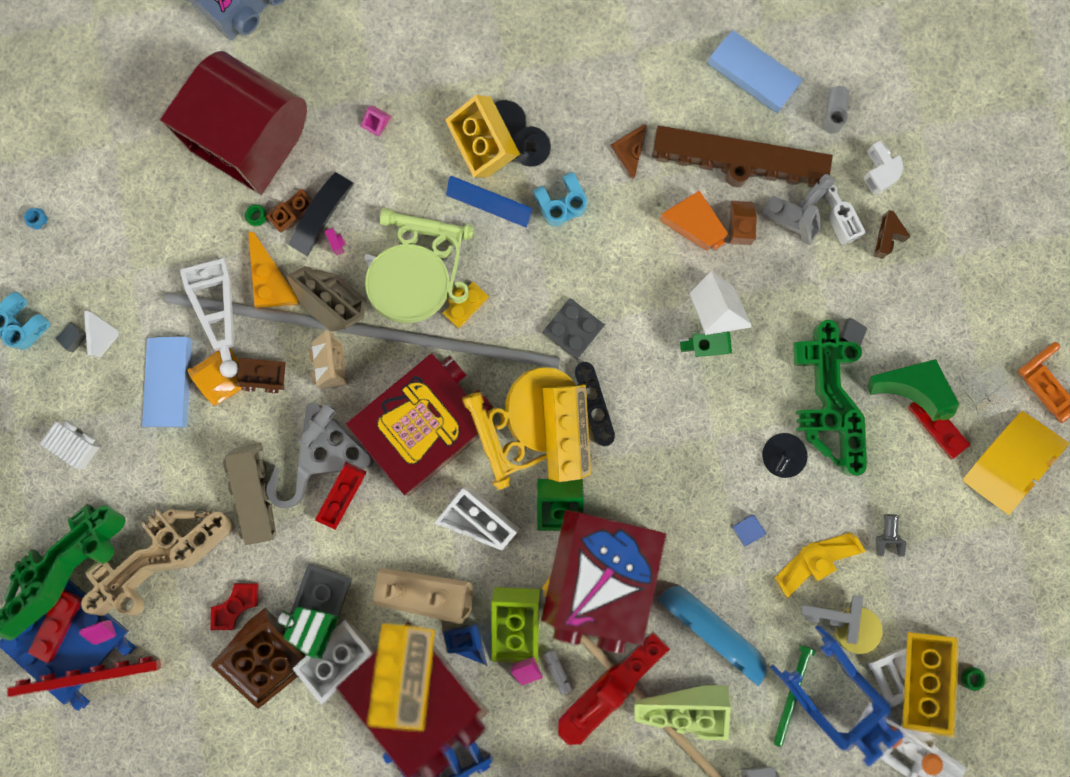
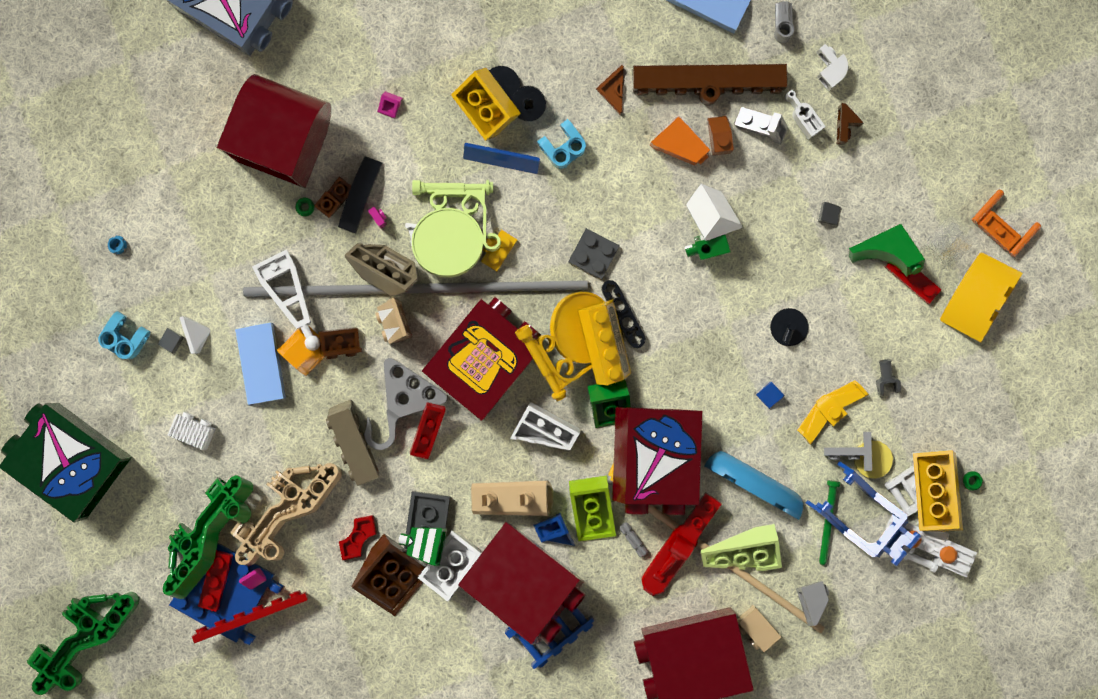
camera: 15 degrees left, 5 degrees up
(269, 285) = (328, 263): light orange wing -> none
(317, 426) = (397, 377): light grey pin -> none
(402, 677) = (510, 566): yellow slope -> none
(526, 671) = (608, 544): dark pink slope -> none
(817, 191) = (778, 99): light grey axle -> none
(835, 401) = (824, 275): green beam -> none

